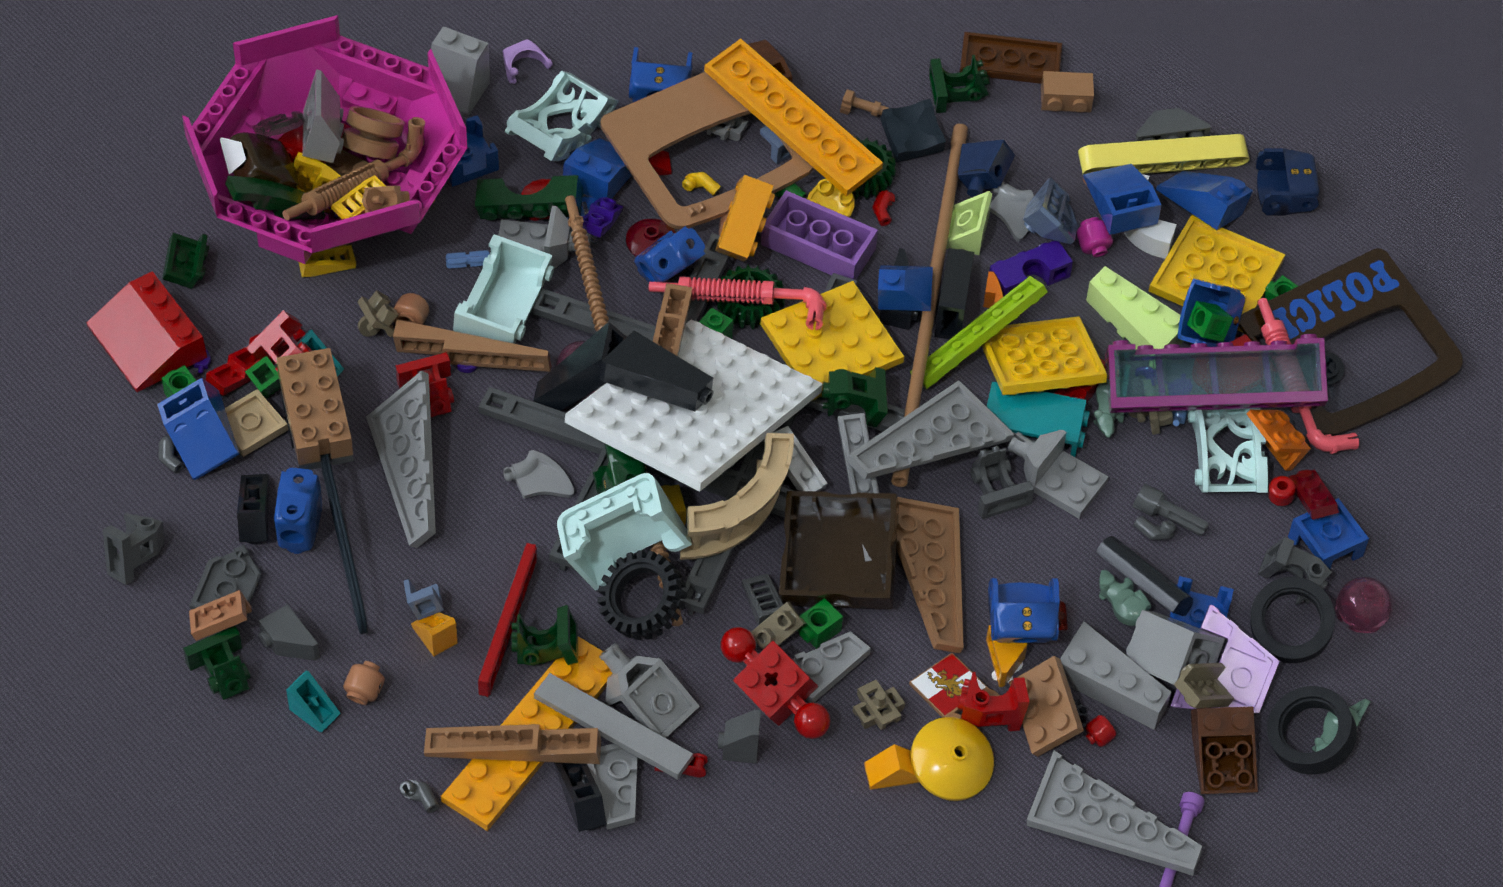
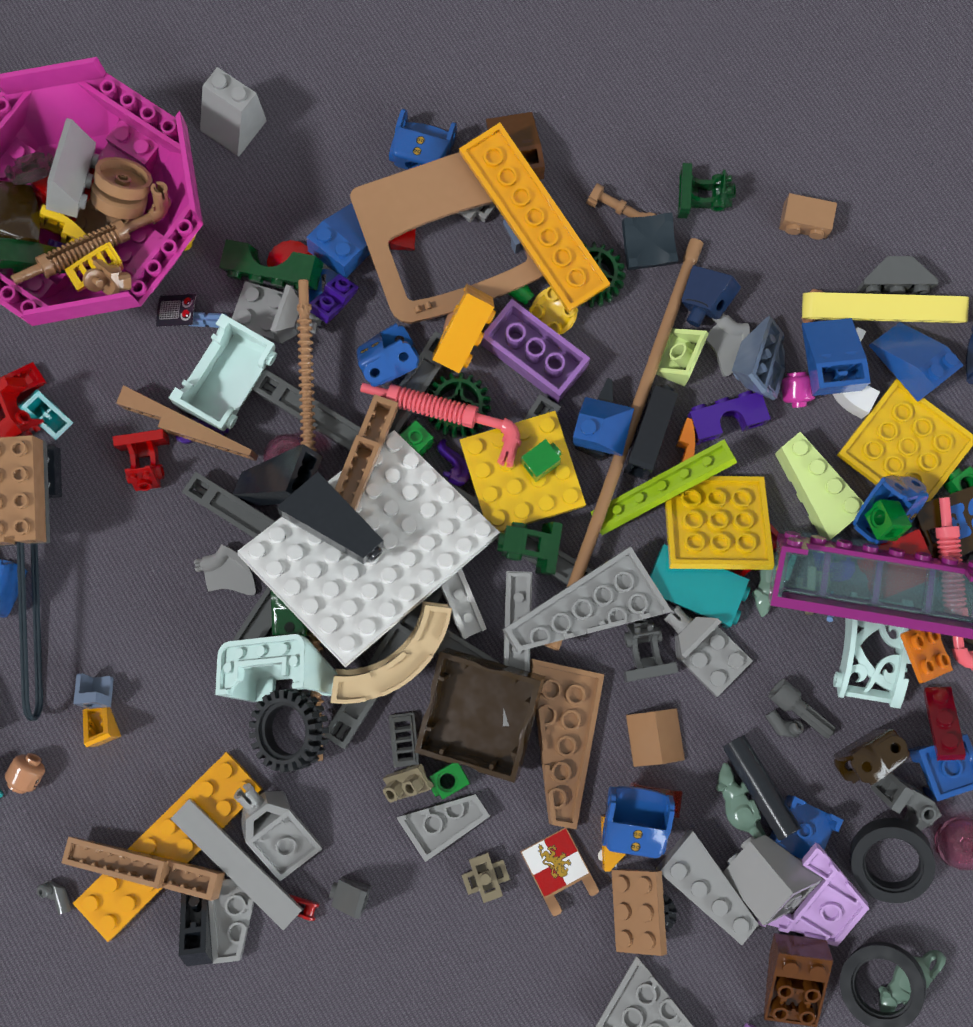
camera: 15 degrees right, 25 degrees up
(377, 315) = (107, 374): dark tan hips -> none
(405, 449) = (106, 519): light grey wing -> none
(412, 308) = (141, 374): nougat head -> none
(433, 254) = (175, 310): none -> black sticker
(478, 157) = (225, 201): blue panel -> none
(508, 616) = (166, 726): red tile -> none
(522, 50) = (297, 91): lavender helmet -> none
(547, 644) = (179, 756): dark green tile -> none
(559, 142) = (309, 209): light aqua fence -> none
(645, 233) = (367, 318): dark red dish -> none
(698, 180) = (439, 265): yellow arm -> none
(756, 345) = (459, 473): none -> dark purple piece
(763, 670) = (393, 846): red brick -> none
(849, 316) = (541, 459): none -> green brick
(880, 206) = (602, 318): red arm -> none
(890, 768) = (487, 946): light orange slope -> none
(941, 769) = (532, 936): yellow dish -> none
(995, 710) = (602, 912): red tile -> none
(1011, 57) = (762, 165): reddish brown tile -> none
(1024, 556) = (655, 738): none -> medium nougat slope
(1099, 731) = (684, 939): red piece -> none
(1201, 686) = (790, 932): dark tan bracket -> none
(1252, 518) = (872, 756): none -> dark brown piece
(1281, 490) = (914, 707): red piece -> none

